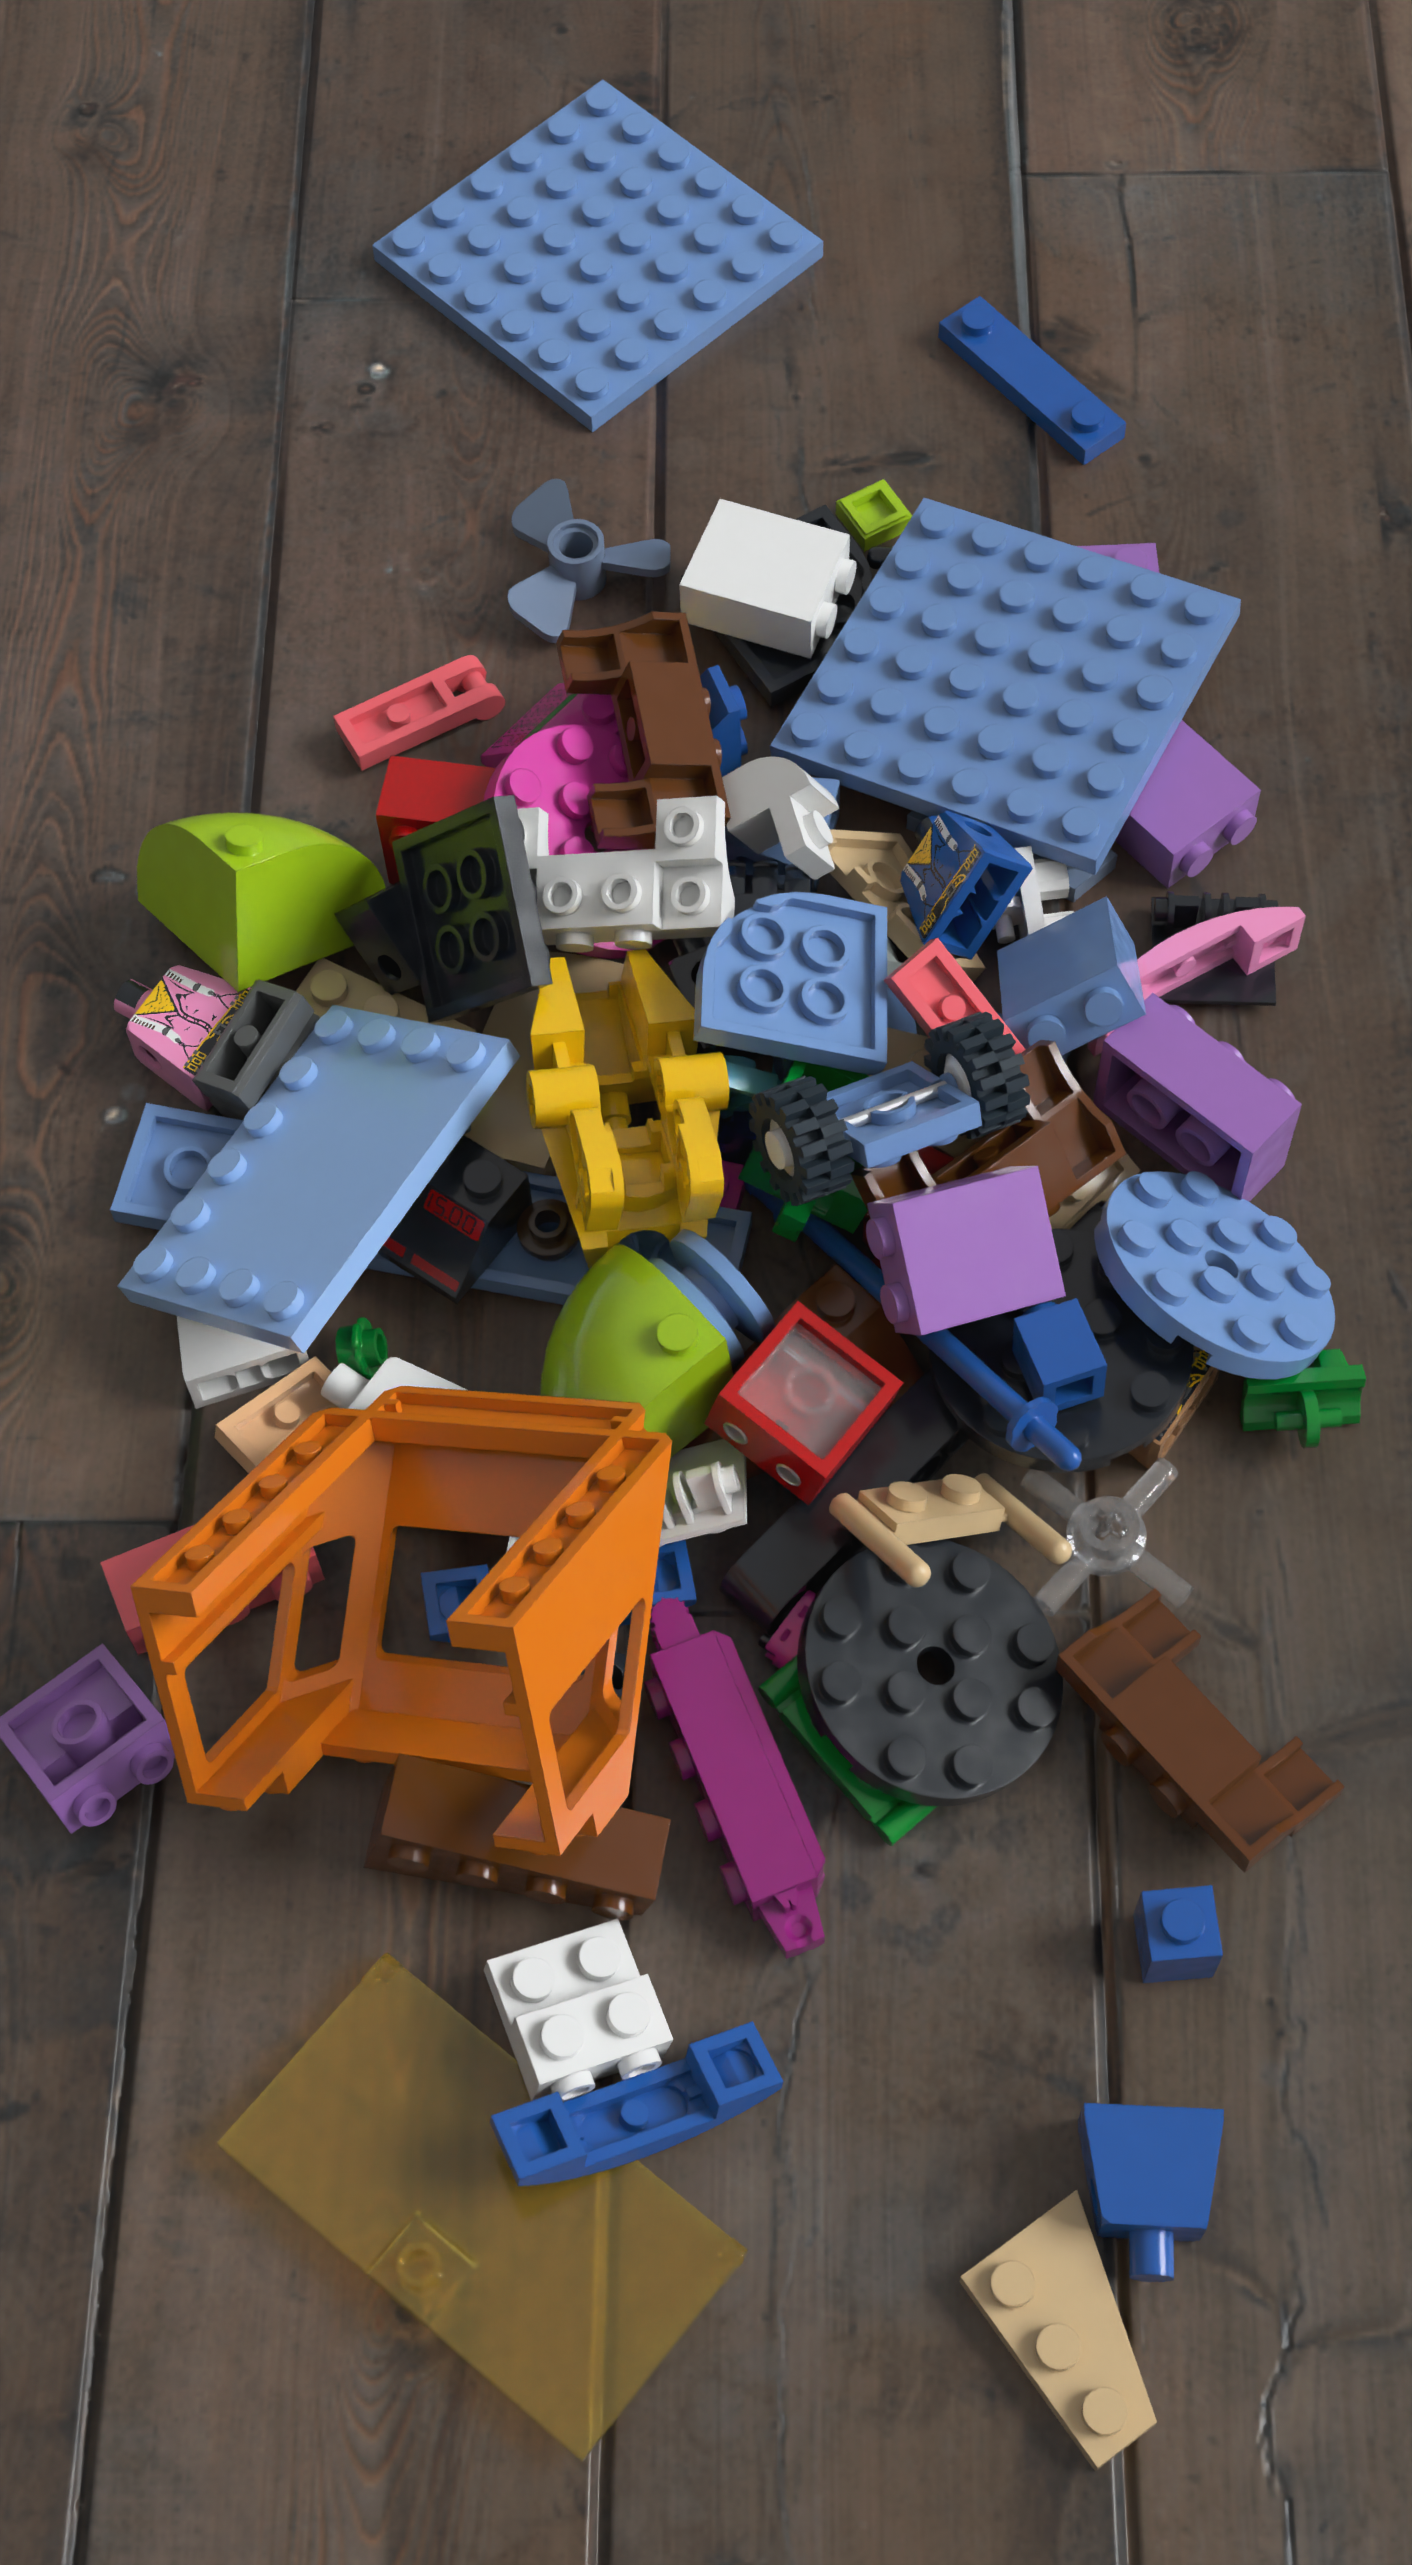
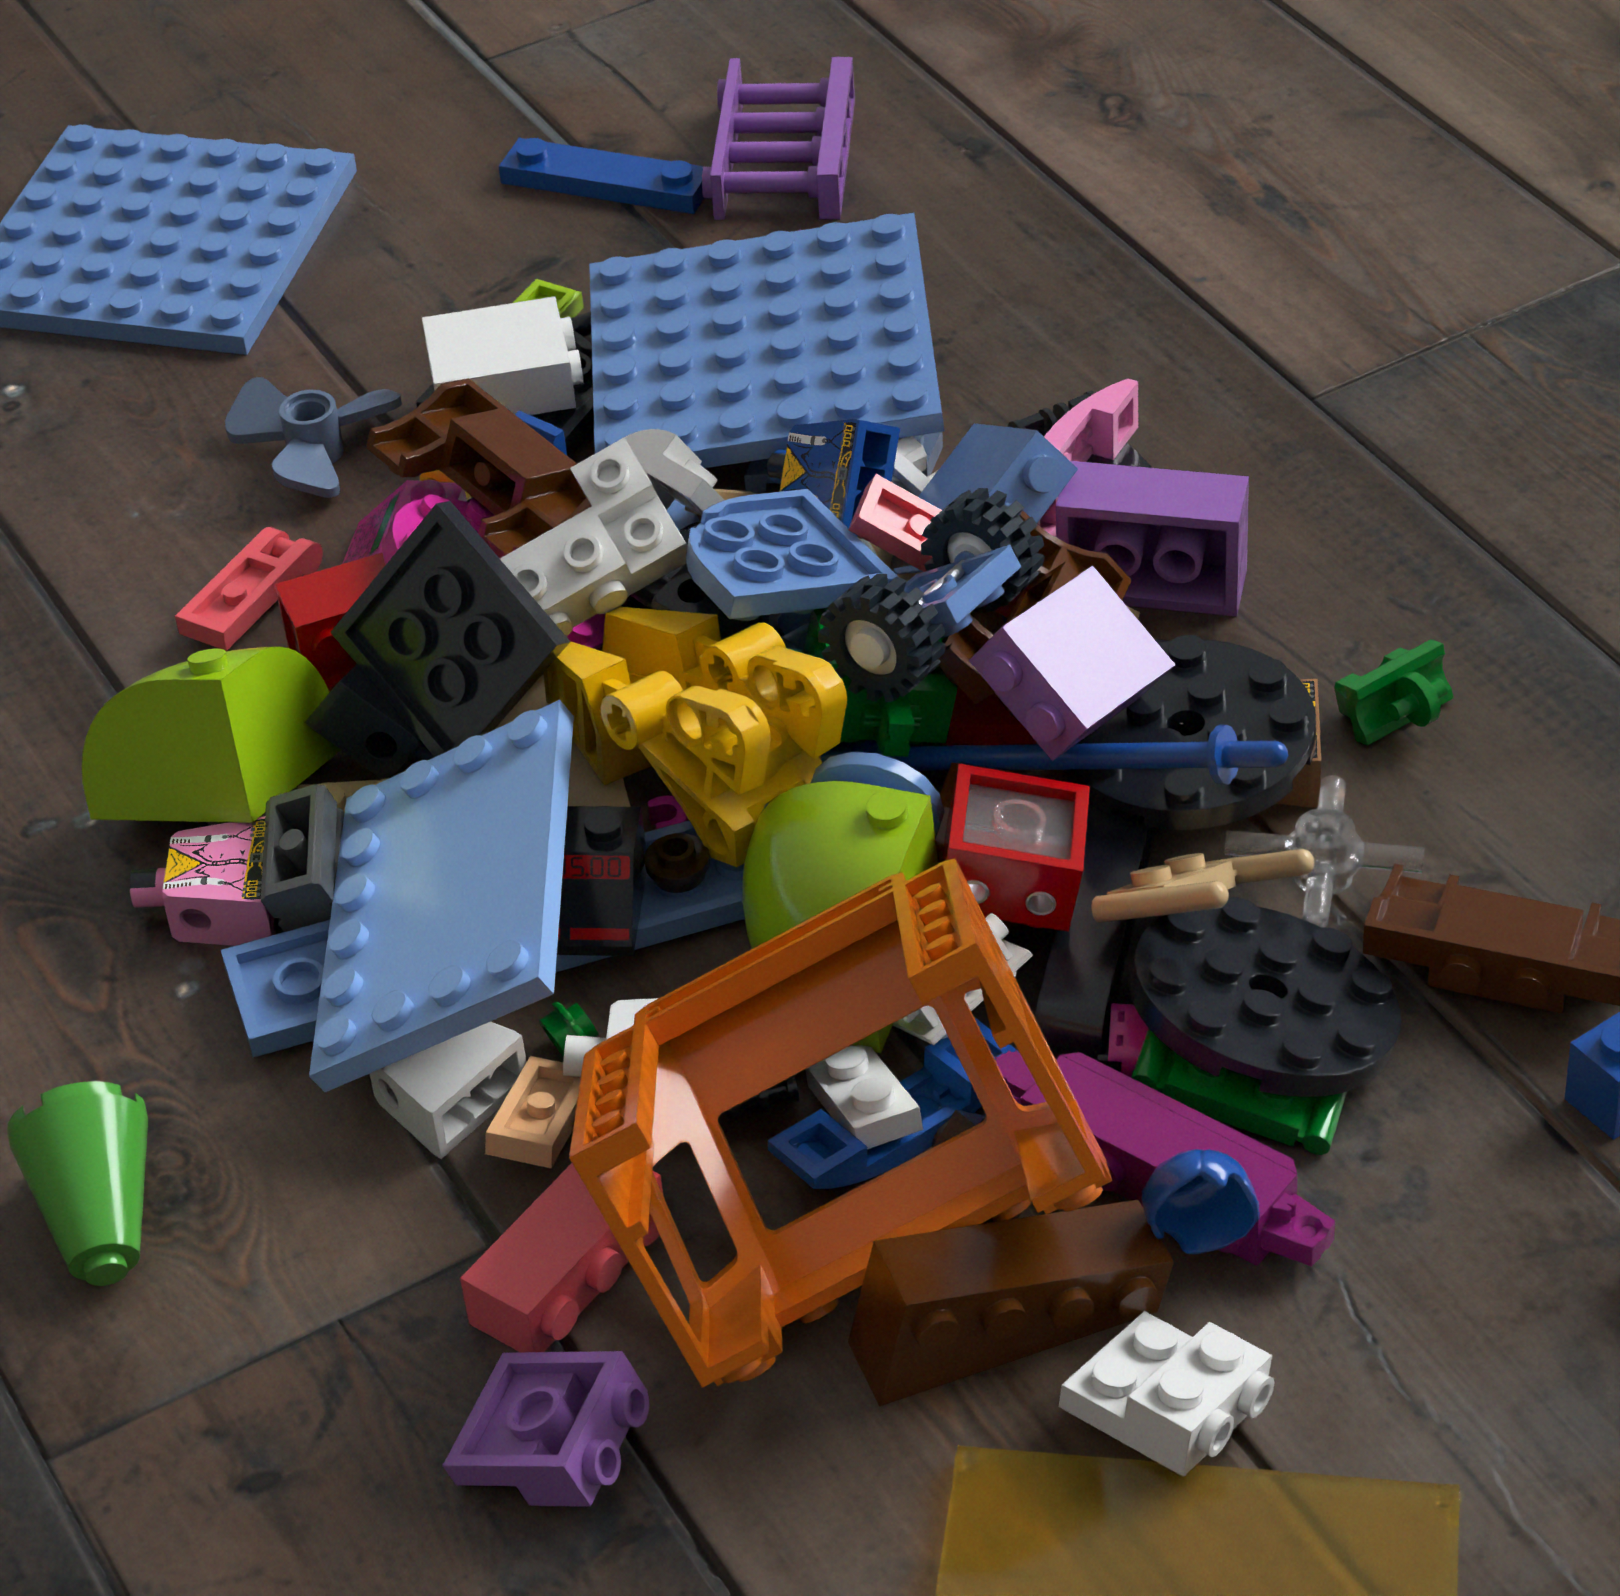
camera: 30 degrees left, 20 degrees down
(639, 2115) = (1295, 1428): blue slope -> none
(711, 1860) = (1200, 1200): none -> blue hair
(1059, 1354) = (1196, 700): blue brick -> none
(1188, 809) = (980, 371): medium lavender brick -> none
(1215, 1274) = (1267, 625): medium blue plate -> none
(1241, 460) = (826, 151): none -> medium lavender fence

